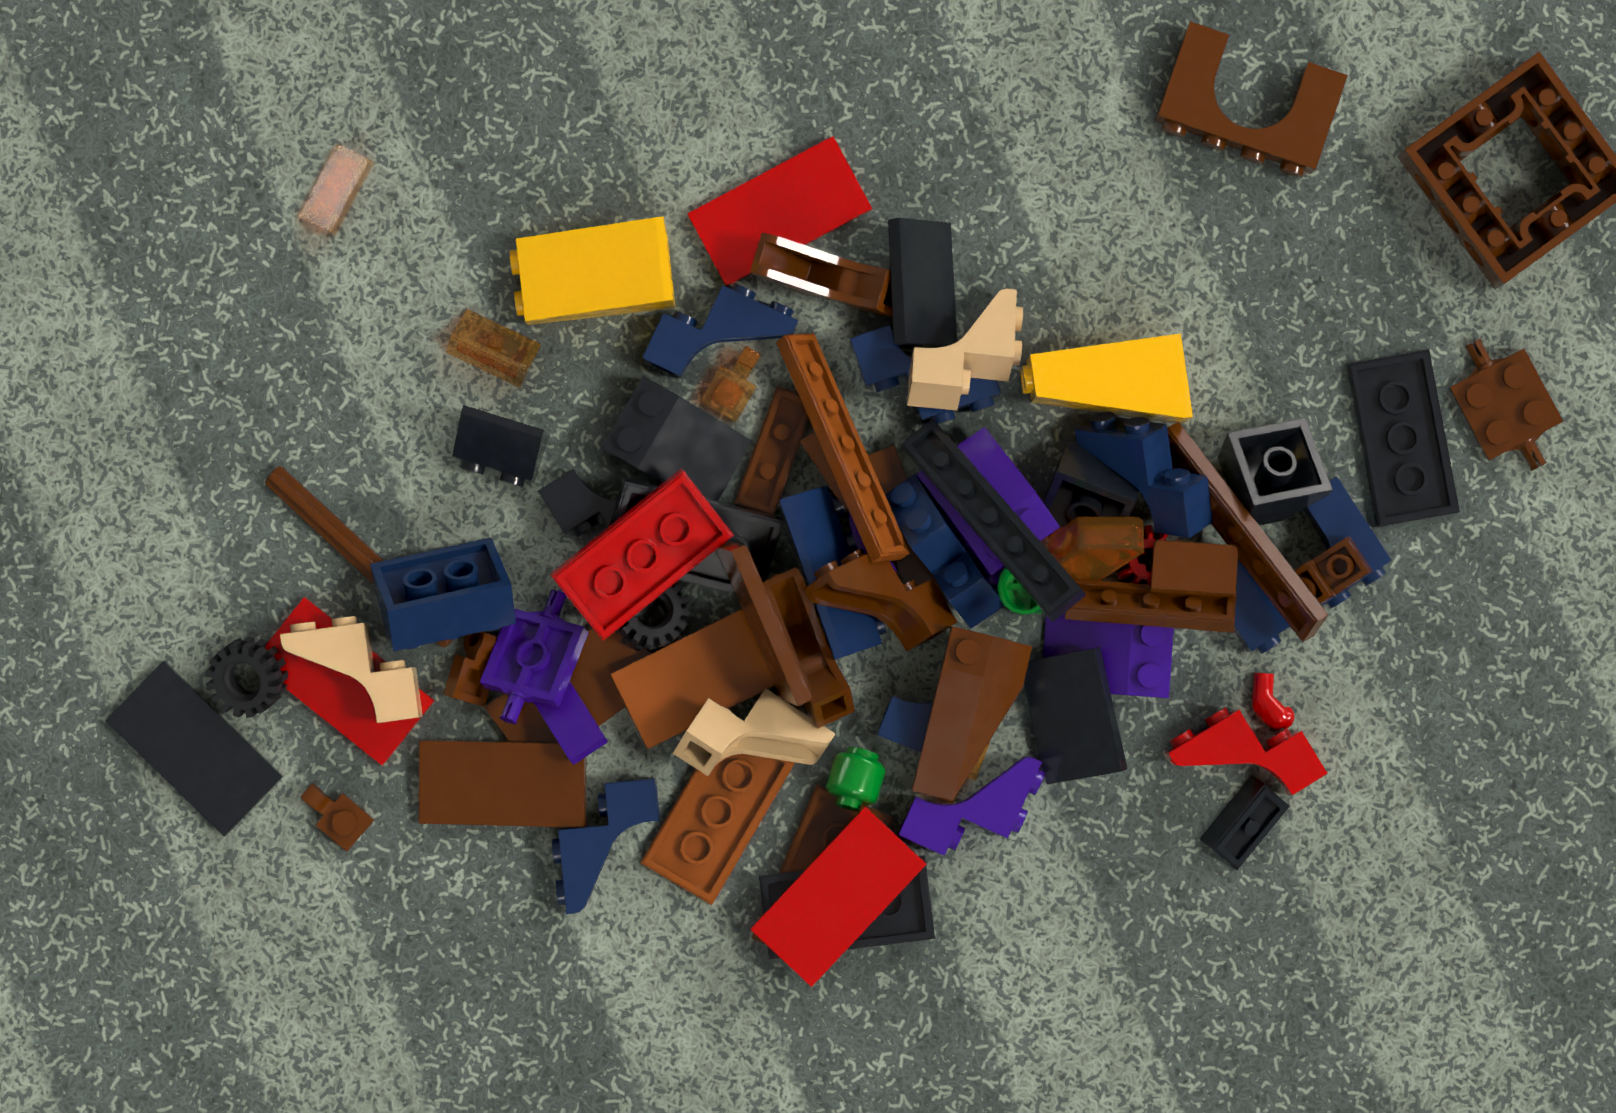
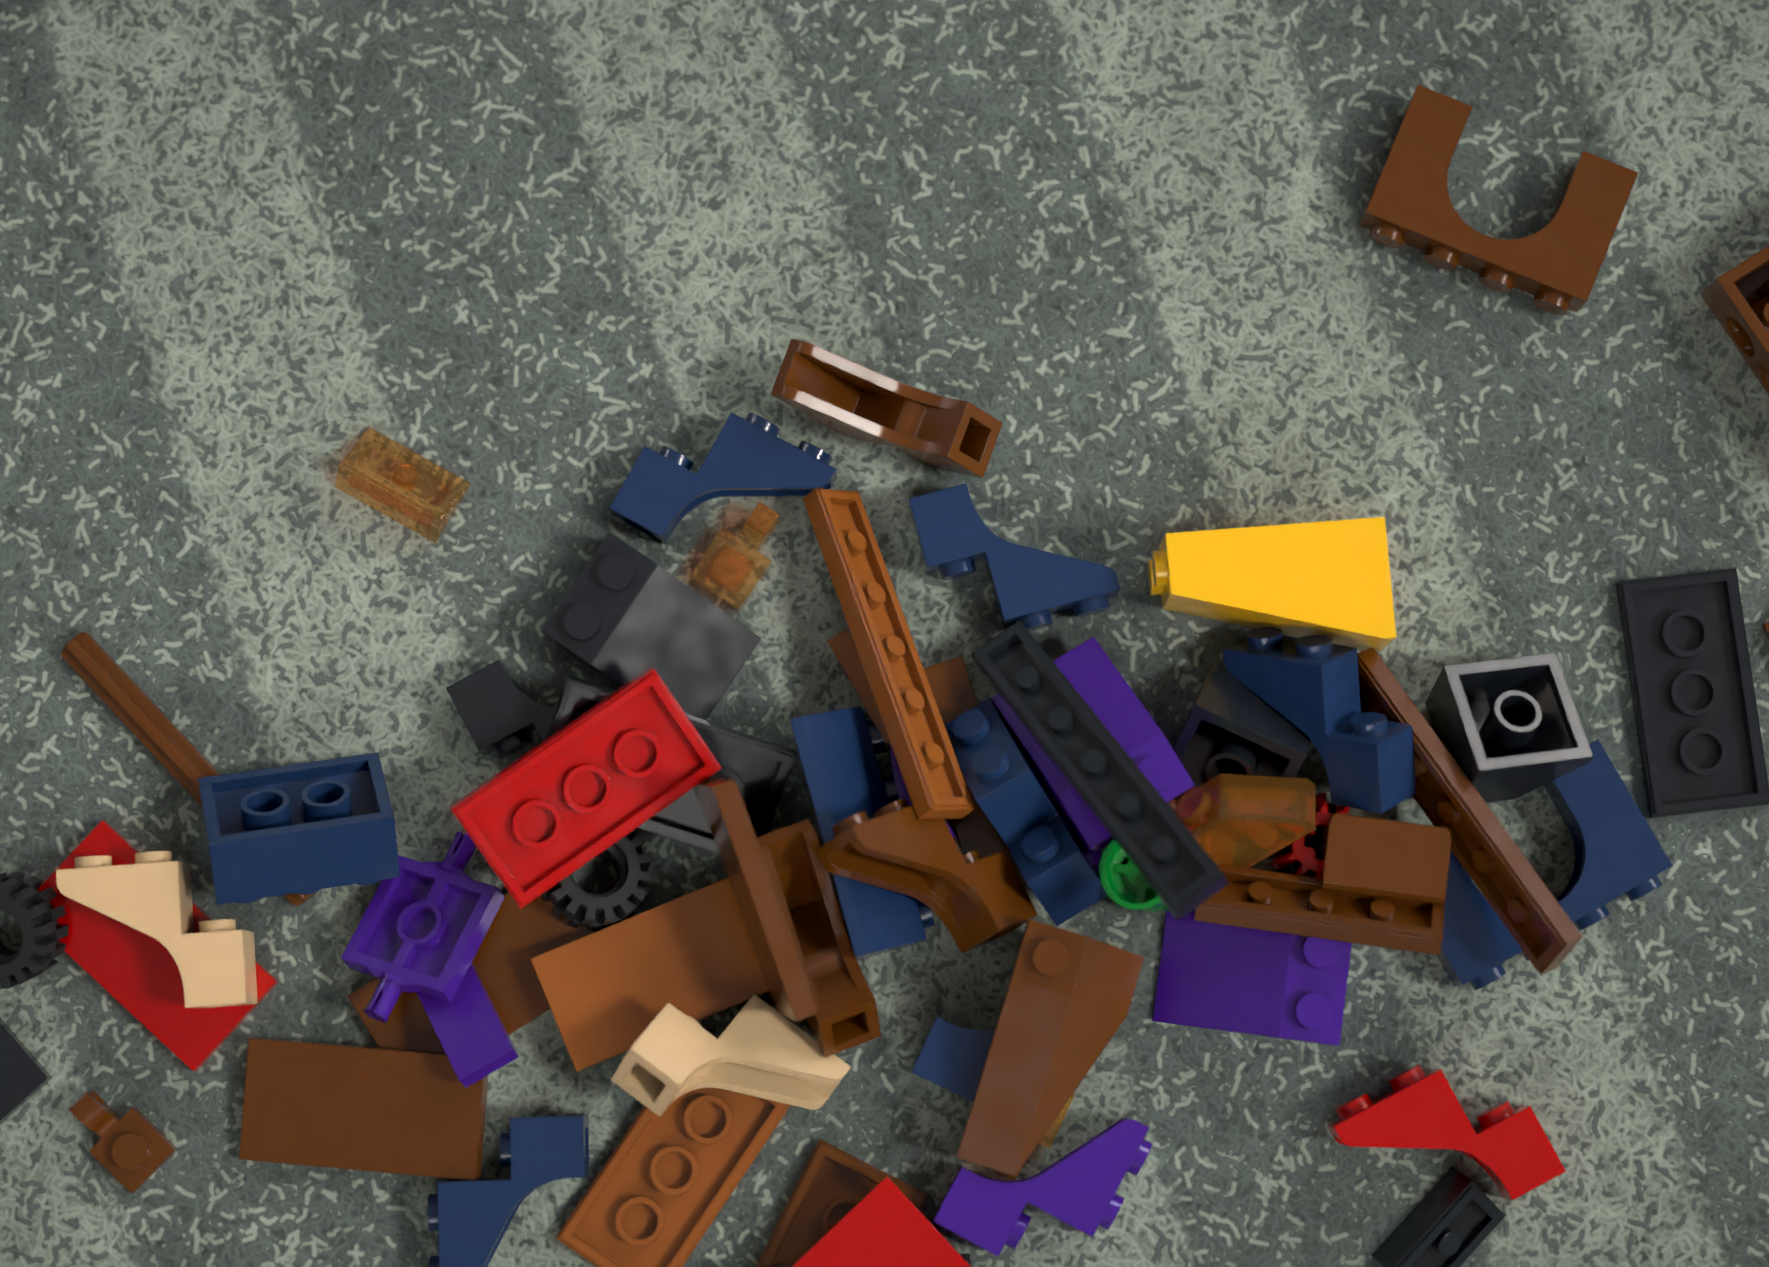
camera: 10 degrees right, 5 degrees down
(336, 189) = (199, 249): clear orange slope -> none
(467, 671) = (324, 942): reddish brown plate -> none
(499, 445) = (397, 619): black slope -> none
(594, 272) = (551, 383): yellow slope -> none
(773, 453) = (789, 657): reddish brown tile -> none
(792, 200) = (846, 300): red tile -> none
(855, 778) = (876, 1134): green head -> none
(922, 282) = (1016, 427): black tile -> none
(984, 352) = (1097, 530): tan arch -> none
(1074, 716) = (1199, 1064): black tile -> none
(1267, 706) = (1480, 1067): red arm -> none
(1334, 570) = (1590, 873): reddish brown slope -> none

